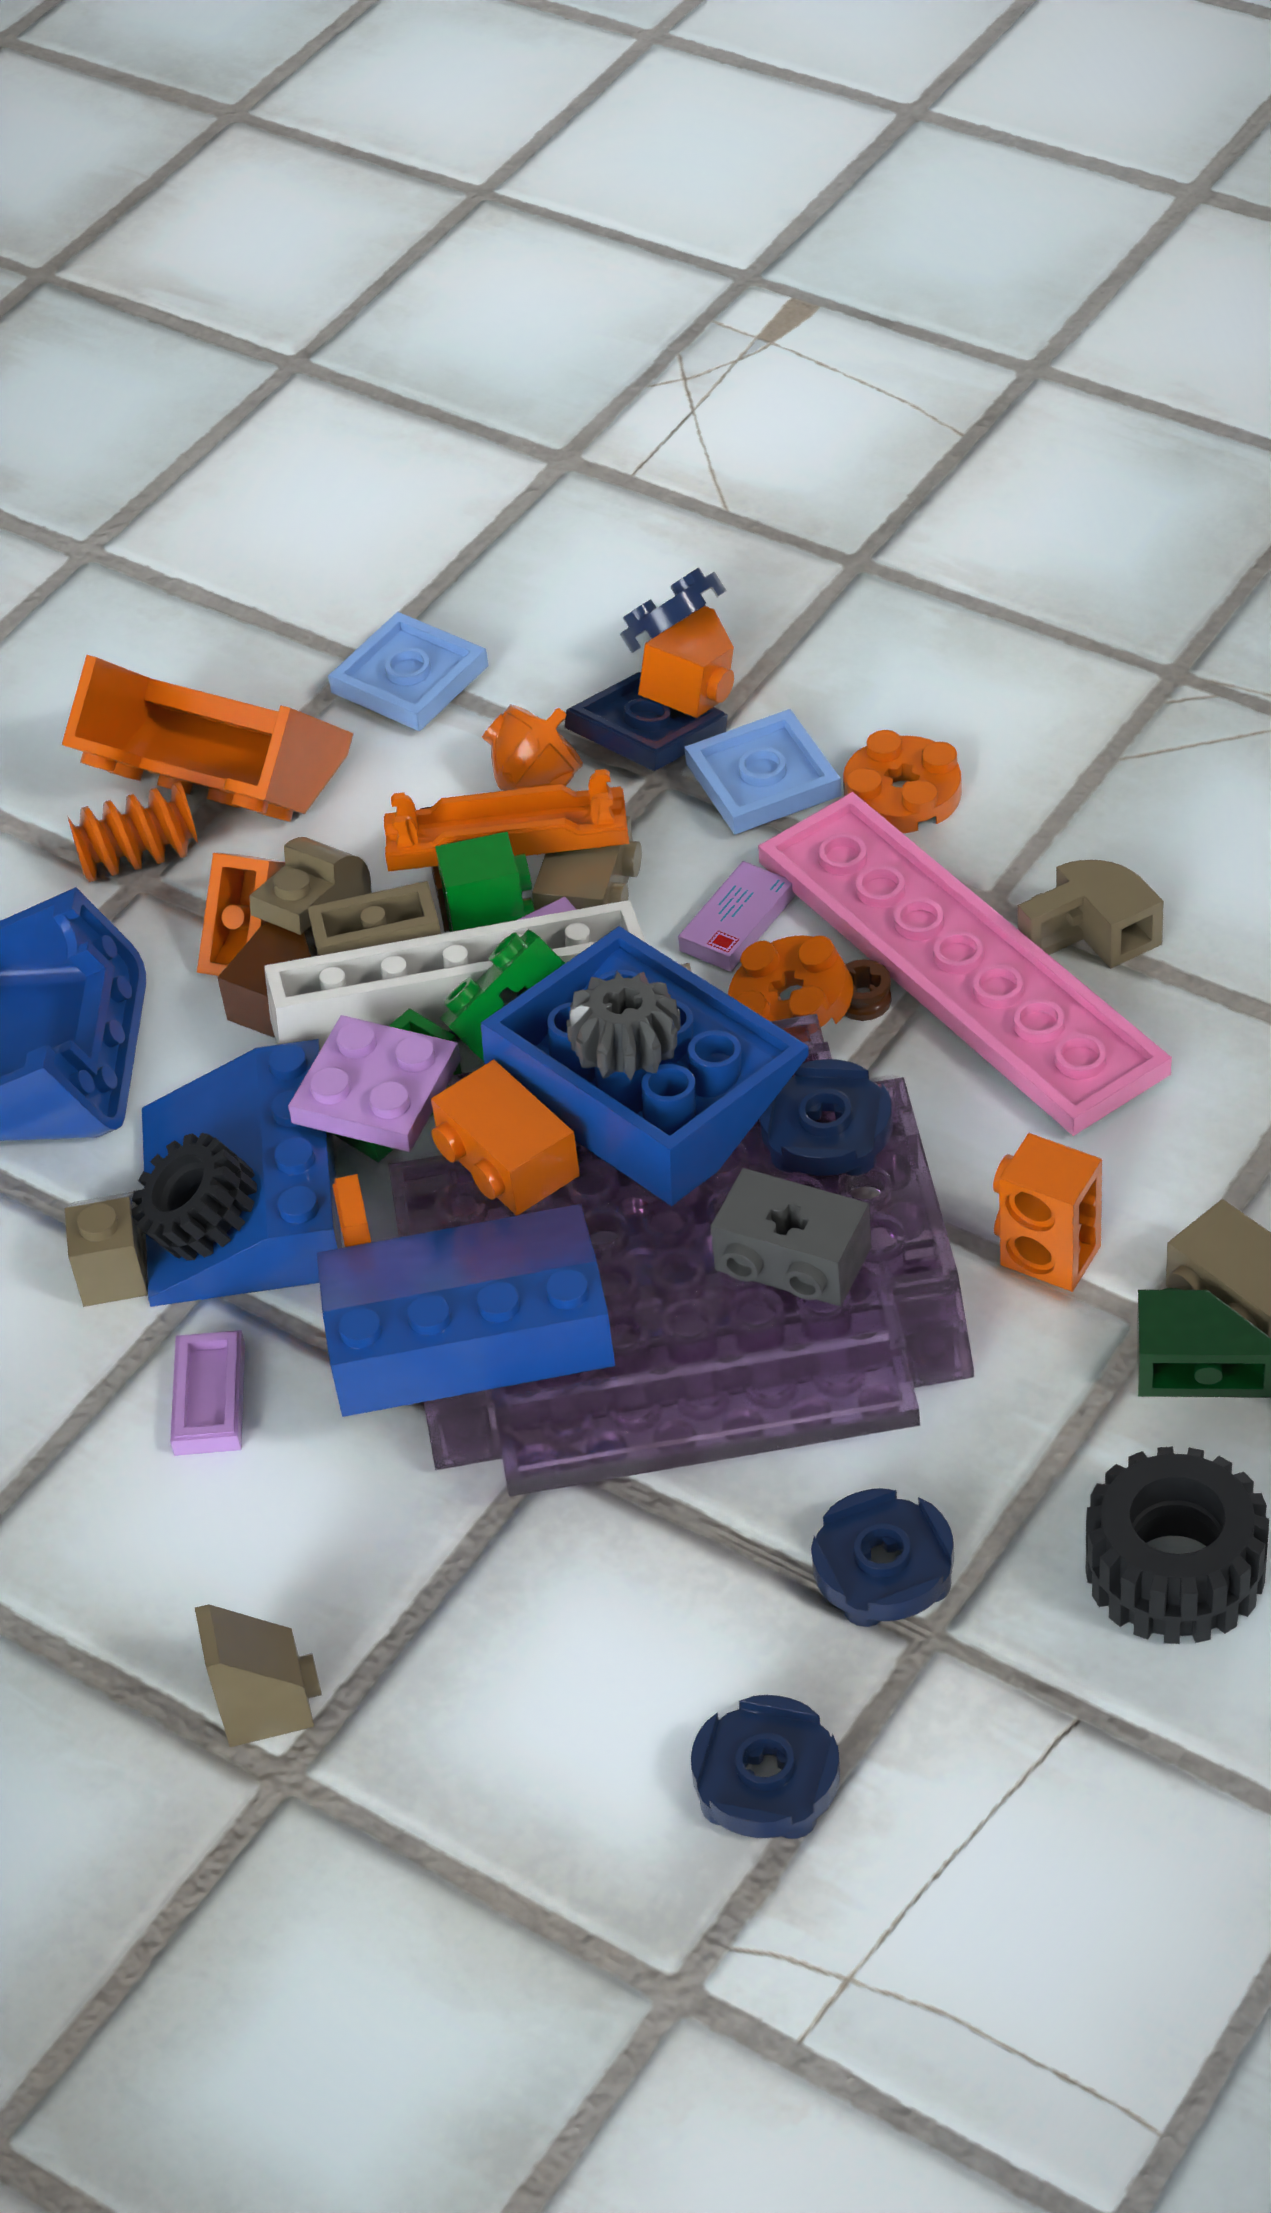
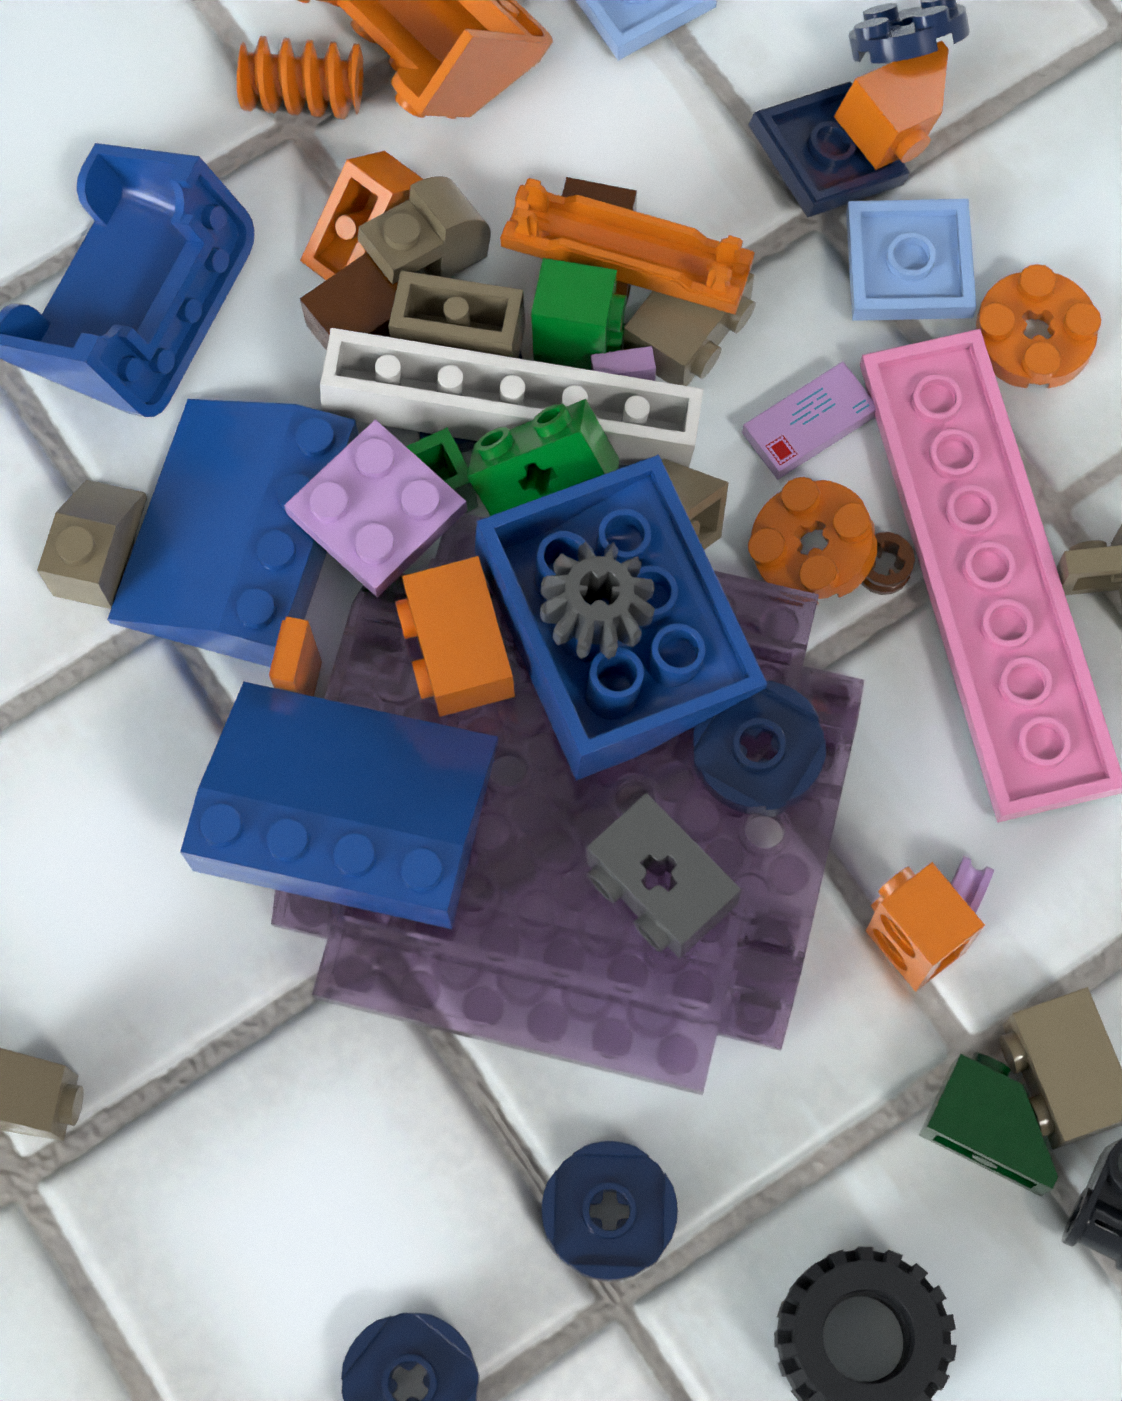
camera: 20 degrees right, 25 degrees up
(194, 1196) = (152, 537): black tyre -> none
(208, 1393) = (116, 747): lavender tile -> none
(530, 750) = (705, 143): orange helmet -> none

